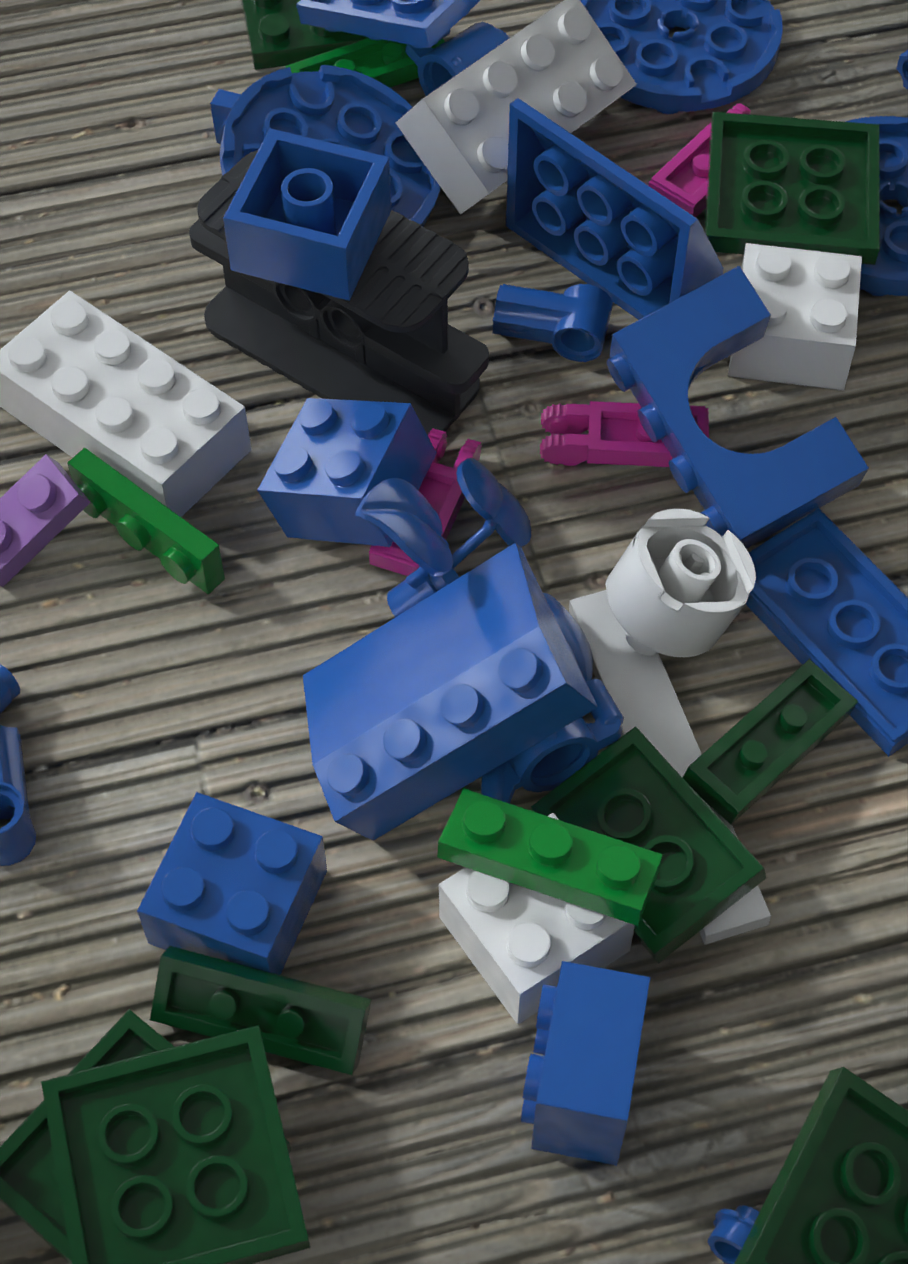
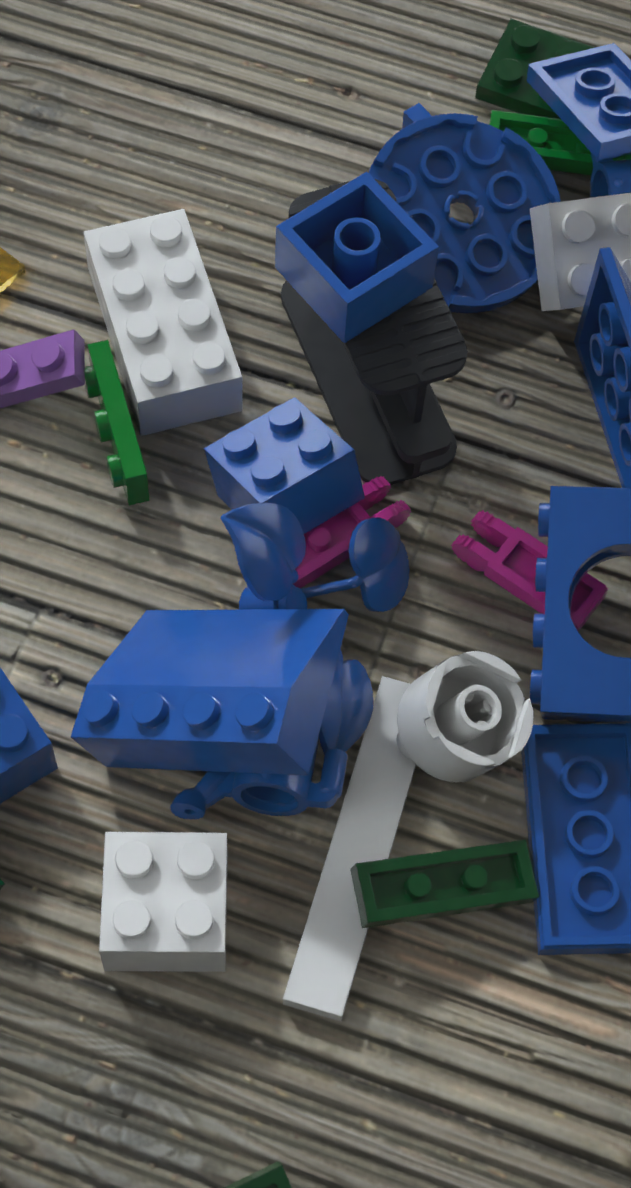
camera: 30 degrees right, 5 degrees up
(550, 856) = (192, 865): green plate -> none
(569, 321) = (554, 451): blue piece -> none
(591, 1048) = (110, 1032): blue brick -> none
(645, 802) = (288, 902): dark green plate -> none

